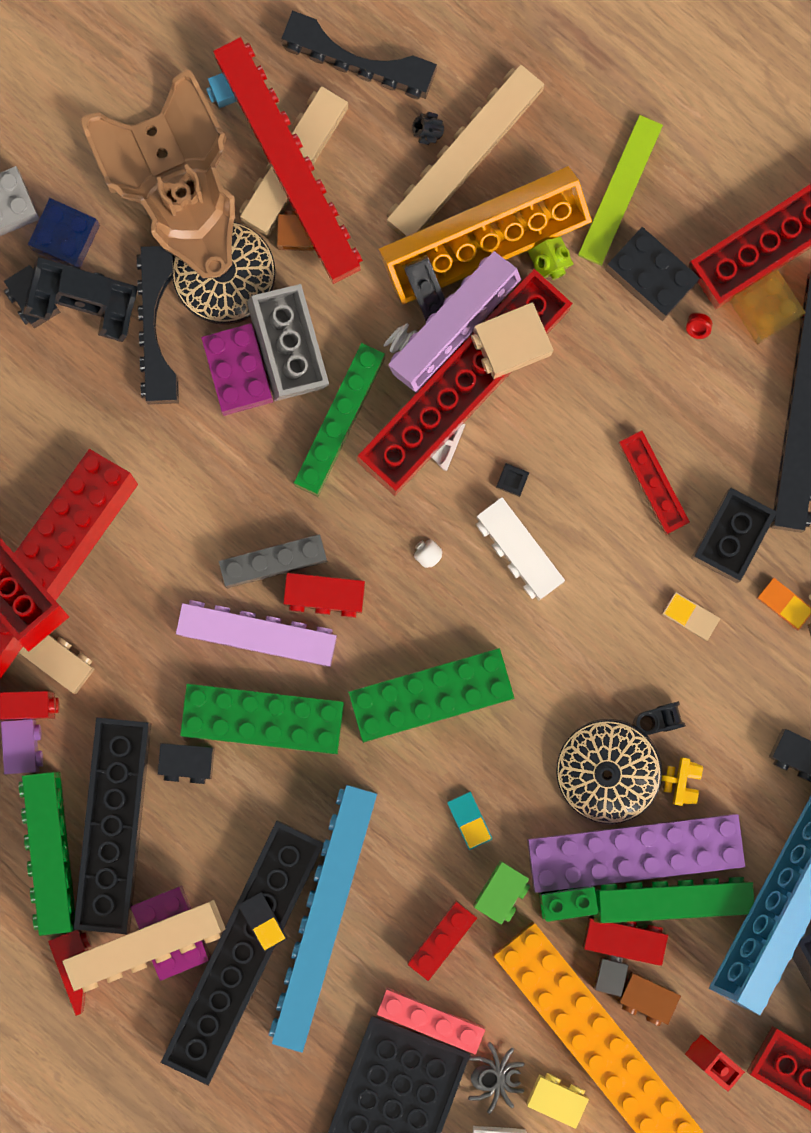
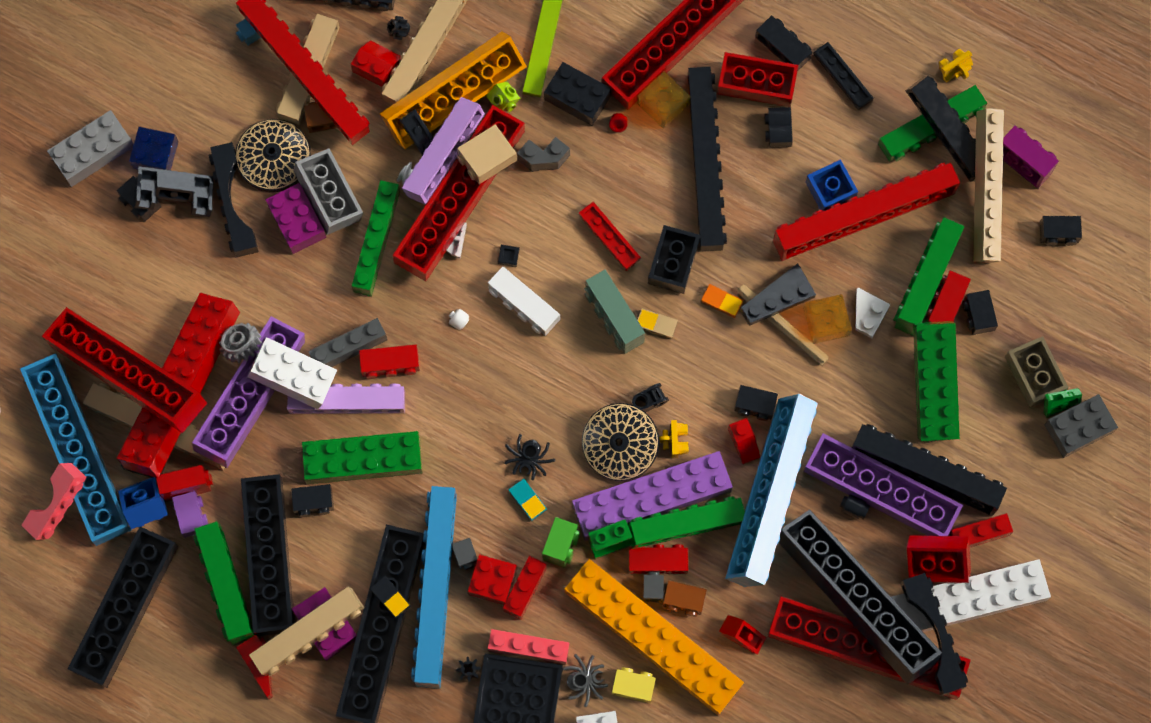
camera: 10 degrees left, 10 degrees down
(128, 601) = (241, 402): none -> medium lavender brick
(129, 532) = (240, 342): none -> light grey gear
(181, 192) = (234, 104): medium nougat piece -> none
(191, 592) = (292, 373): none -> white brick
(345, 1040) = (468, 663): none -> black gear
(372, 878) = (465, 554): none -> dark grey brick
(387, 171) = (375, 63): none -> red slope
(401, 921) = (492, 579): none -> red brick
(431, 695) = (481, 415): green brick -> none
(483, 763) = (528, 456): none -> black animal
(578, 355) = (536, 159): none -> dark grey brick
(639, 592) = (615, 312): none -> sand green brick
(773, 804) = (744, 441): none -> red slope

